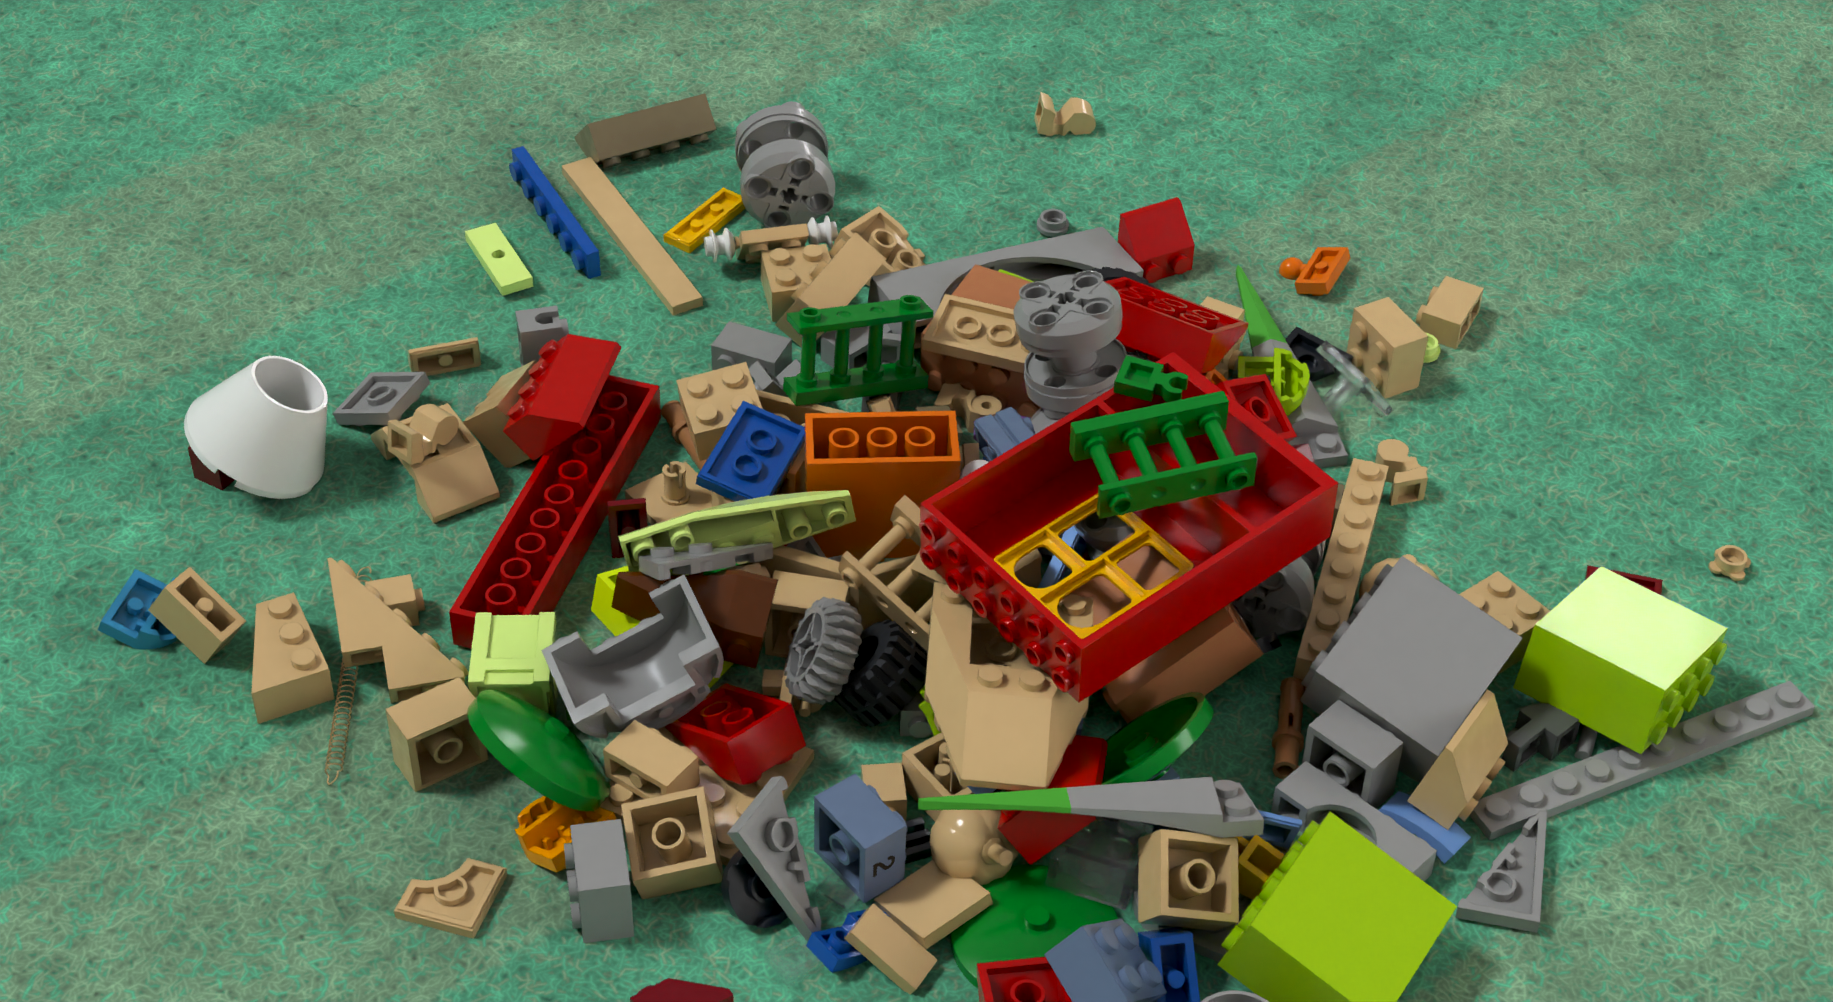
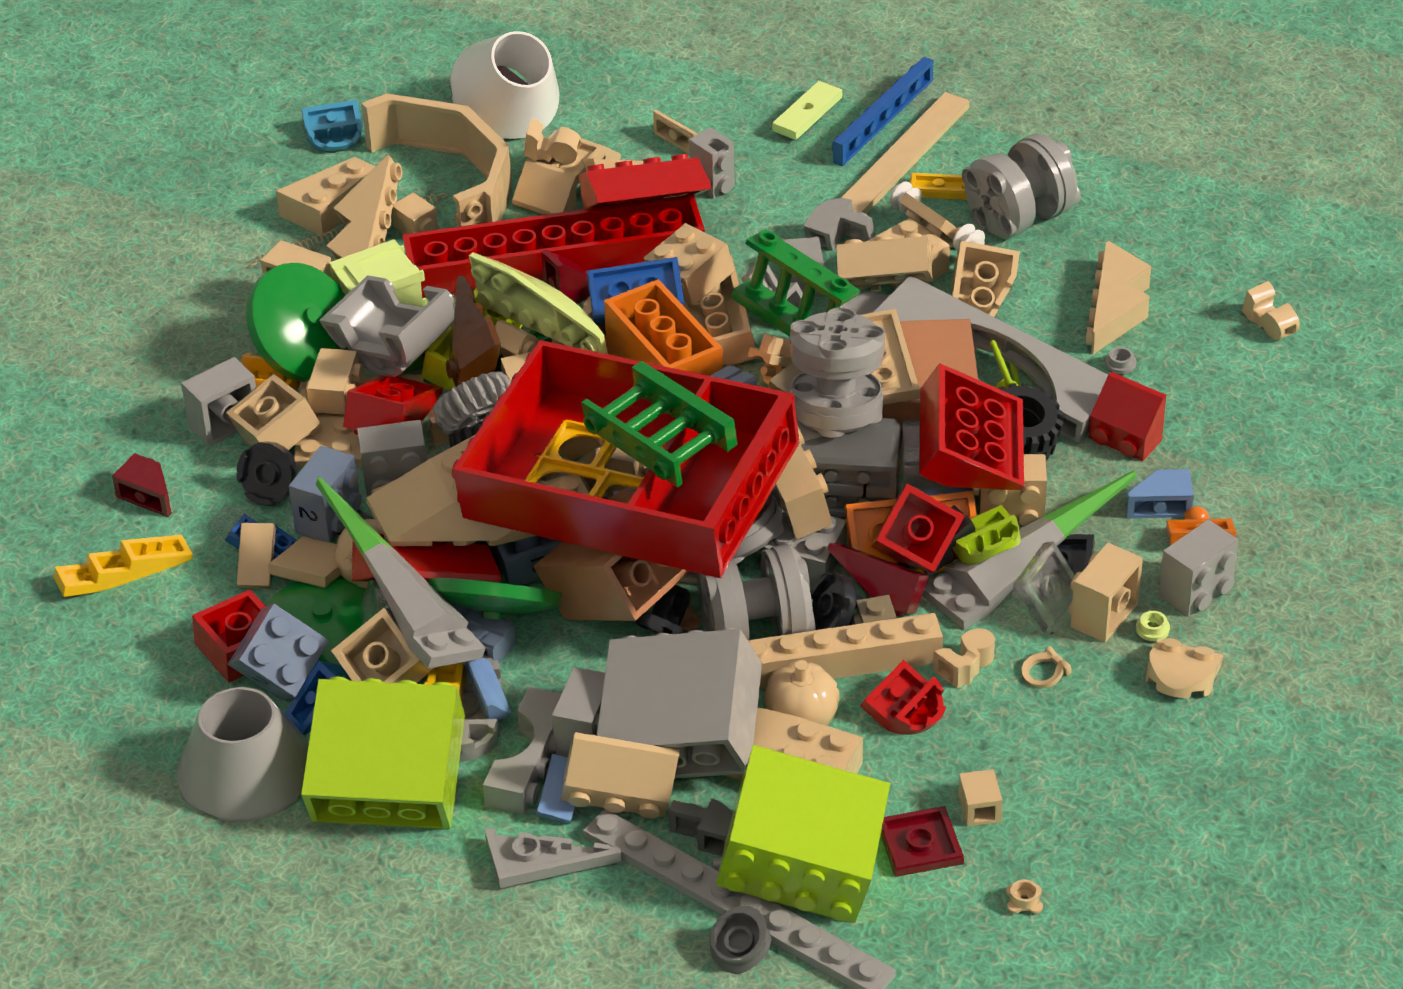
camera: 65 degrees right, 0 degrees up
(197, 615) = (328, 137): tan brick -> none
(335, 500) = (448, 129): none -> tan panel
(381, 398) = (606, 123): light grey plate -> none
(454, 901) = (184, 357): tan tile -> none
(647, 130) = (1020, 110): dark tan slope -> none
(700, 558) = (490, 300): light grey wing -> none
(708, 305) = (834, 220): none -> light grey brick
(774, 852) = (271, 451): light grey wing -> none
(826, 755) = (390, 452): none -> light grey brick
(976, 190) = (1120, 296): none -> tan slope
(1146, 378) = (736, 387): green plate -> none
(1263, 265) = (1161, 495): none -> medium blue slope
(1389, 271) = (1198, 568): none -> light grey brick
(1434, 534) = (906, 701): none -> red slope
(1444, 422) = (1049, 655): none -> tan piece
(1450, 310) = (1213, 624): tan brick -> none
(1489, 352) = (1182, 668): none -> tan slope
(1594, 536) = (980, 797): none -> tan brick
(1712, 769) = (739, 939): none -> dark grey piece

